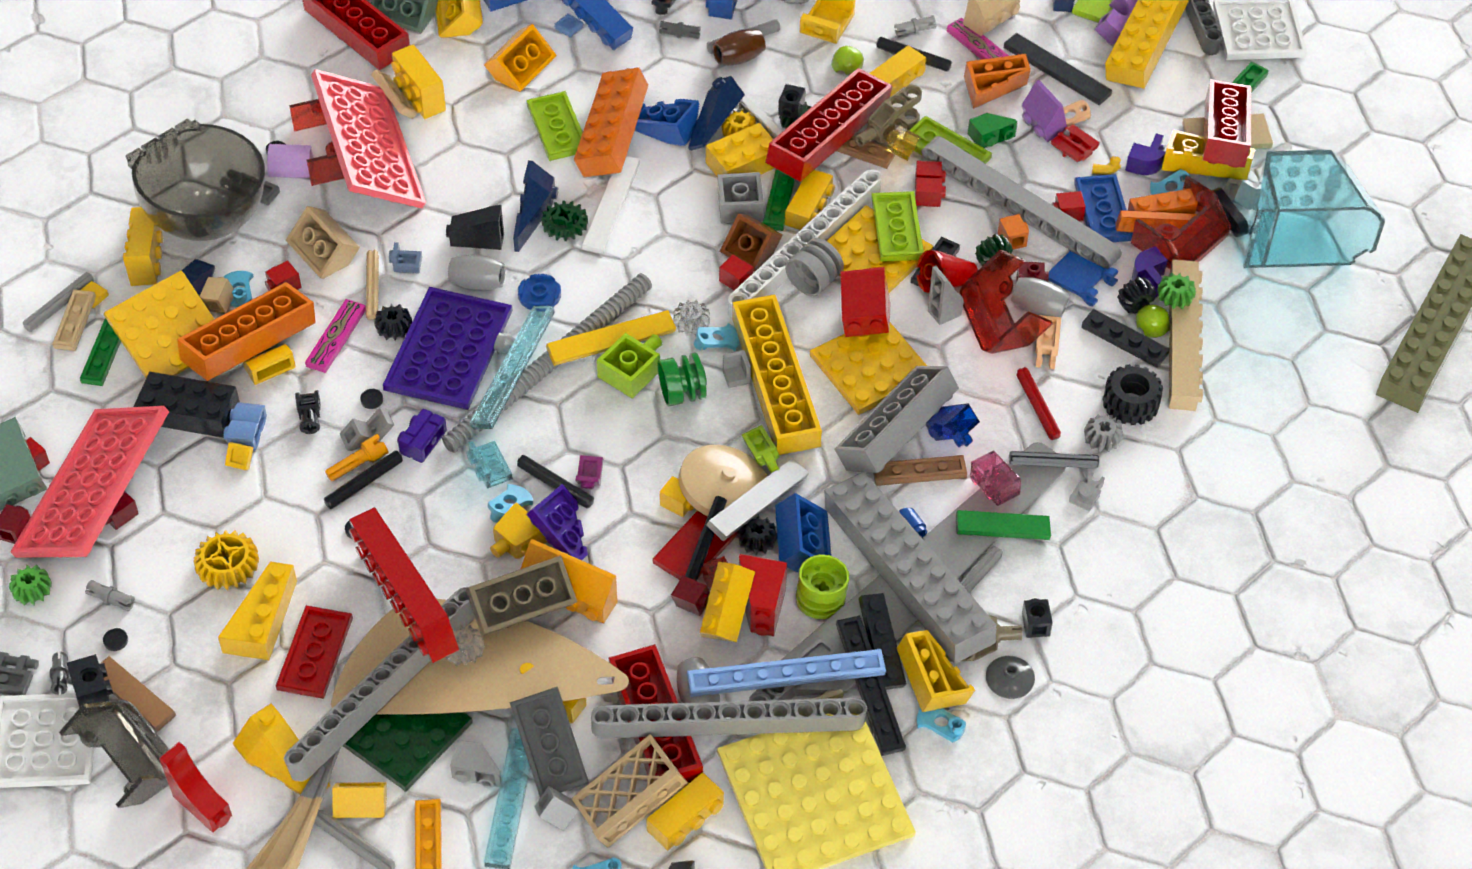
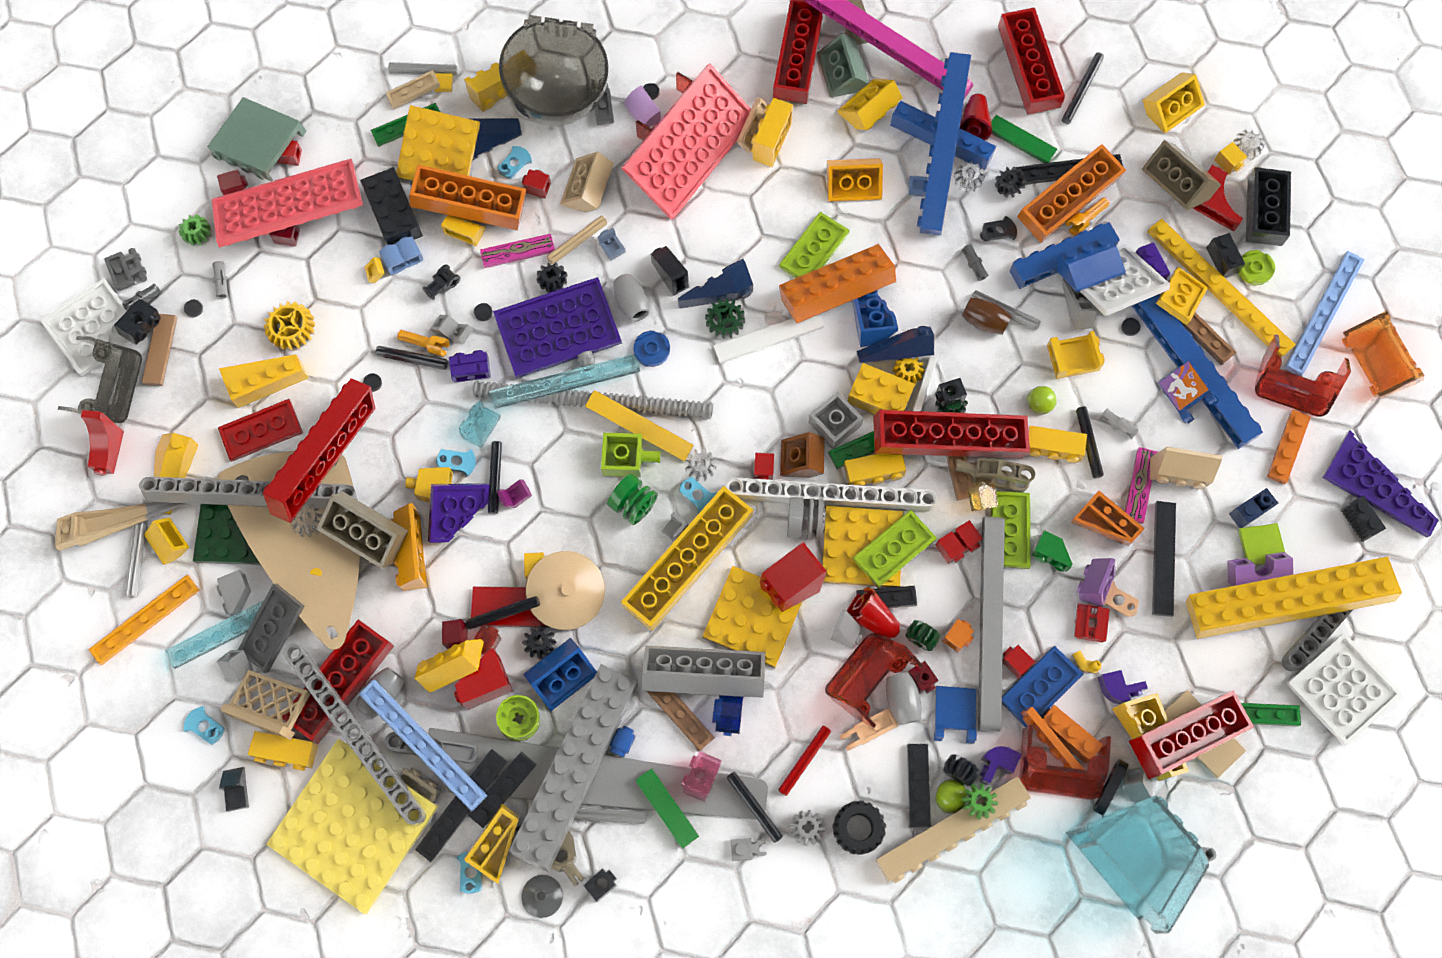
camera: 55 degrees right, 20 degrees up
(217, 294) = (492, 154): tan brick -> none
(757, 499) = (562, 623): tile -> none
(762, 448) = (614, 594): lime hinge -> none
(1160, 187) = (1091, 720): medium azure piece -> none

